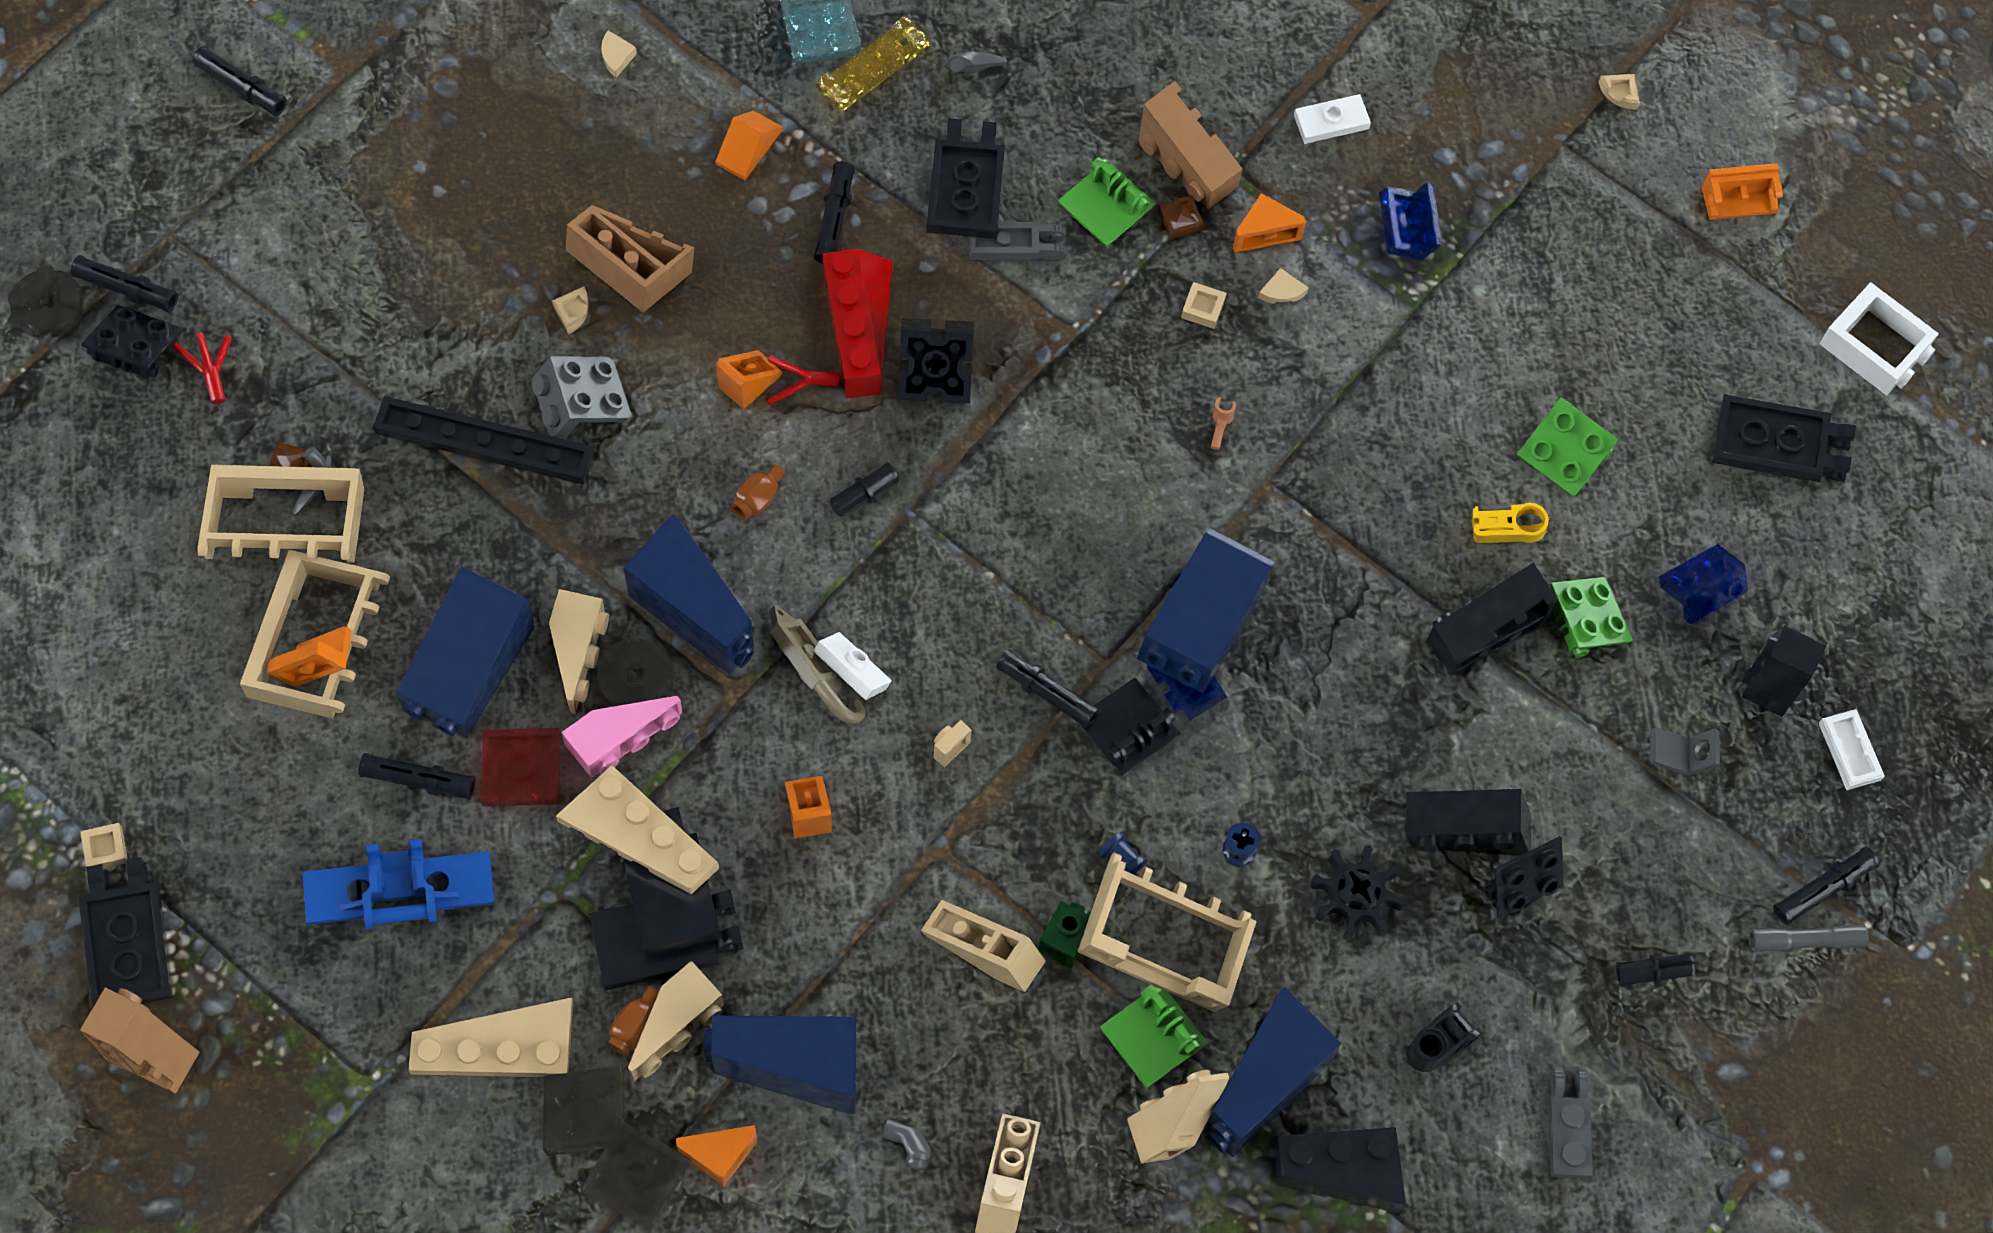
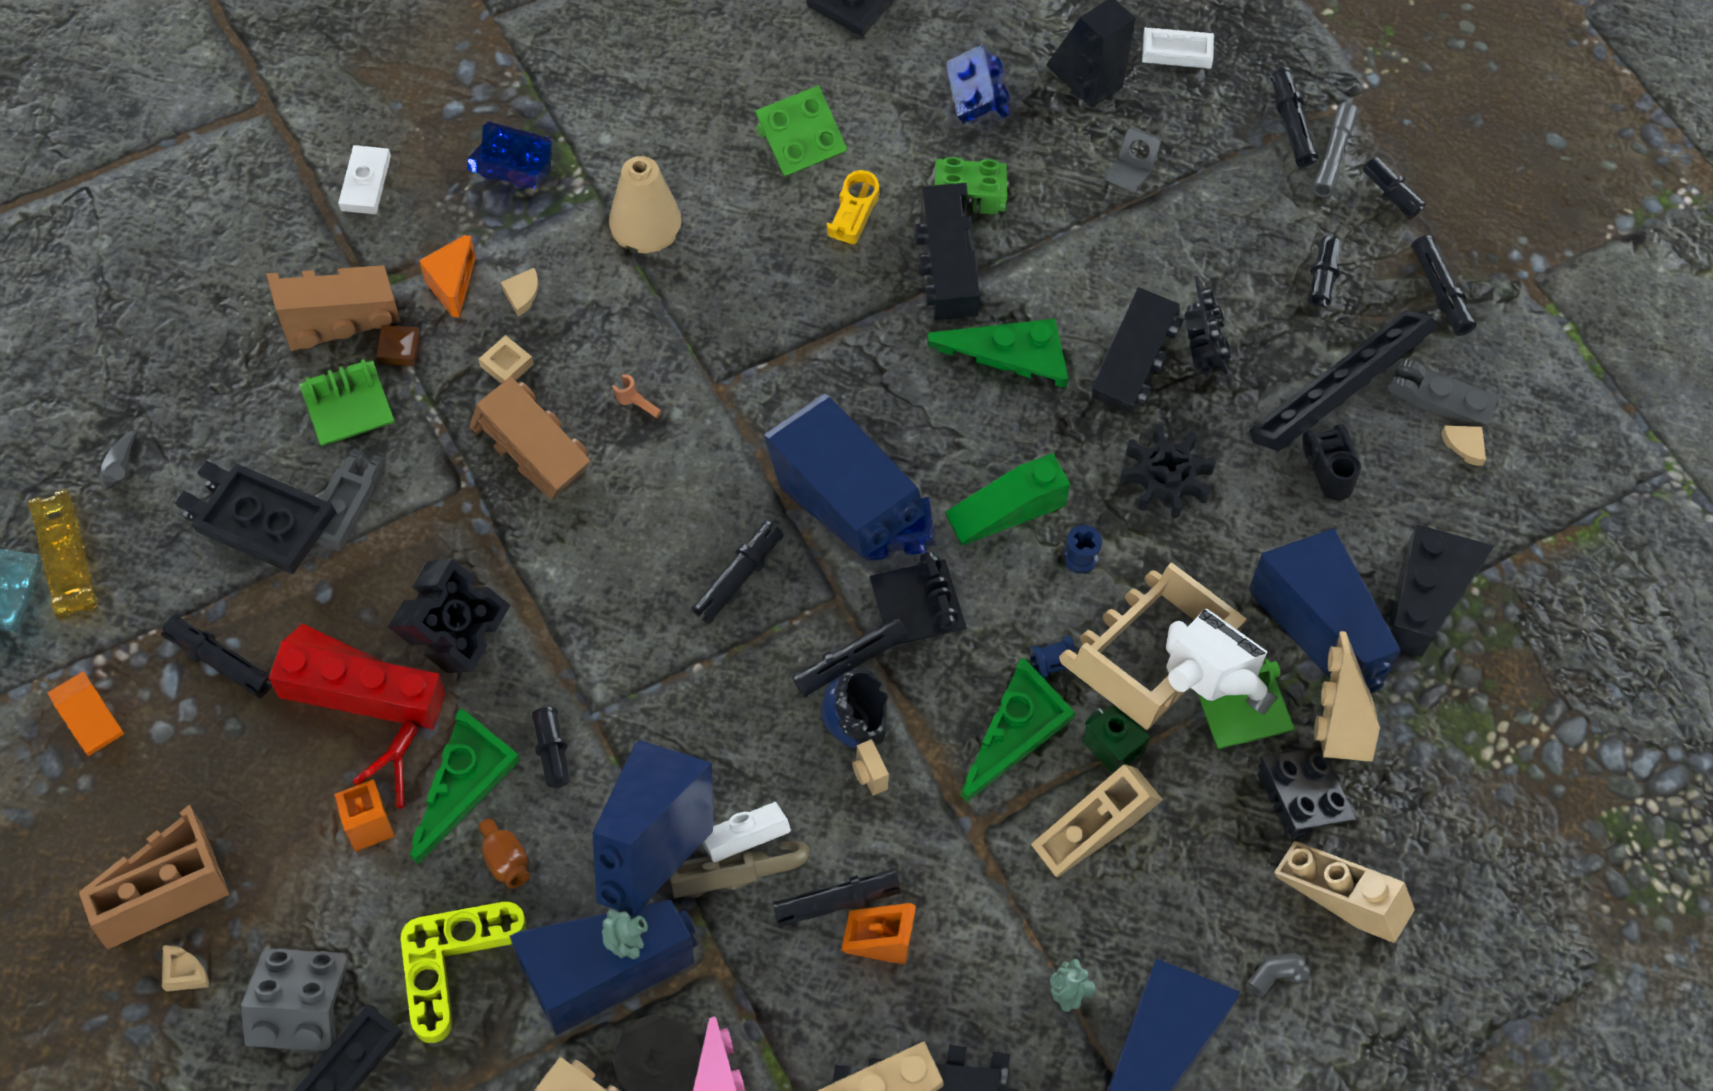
camera: 65 degrees left, 5 degrees down
(654, 479) = (434, 953): none -> neon yellow beam
(701, 592) = (623, 934): none -> sand green plant
(807, 578) = (650, 824): none -> dark blue slope
(815, 437) = (469, 771): none -> green wing
(824, 971) = (1071, 985): none -> sand green plant
(835, 771) = (837, 897): none -> black pin
(995, 708) = (855, 708): none -> black hair
(1053, 854) = (1025, 720): none -> green wing
(1089, 569) = (748, 559): none -> black pin
(1089, 1114) = (1305, 791): none -> black hinge
(1133, 353) = (530, 437): none -> medium nougat wedge
(1162, 984) = (1216, 661): none -> white torso
(1263, 767) = (1010, 500): none -> green slope
(1409, 350) = (644, 208): none -> tan cone
(1432, 723) = (1018, 347): none -> green wing
(1525, 1161) = (1466, 442): none -> tan tile
(1537, 1022) = (1342, 380): none -> black plate
(1685, 1097) = (1459, 315): none -> black pin
(1790, 1007) = (1394, 188): none -> black axle

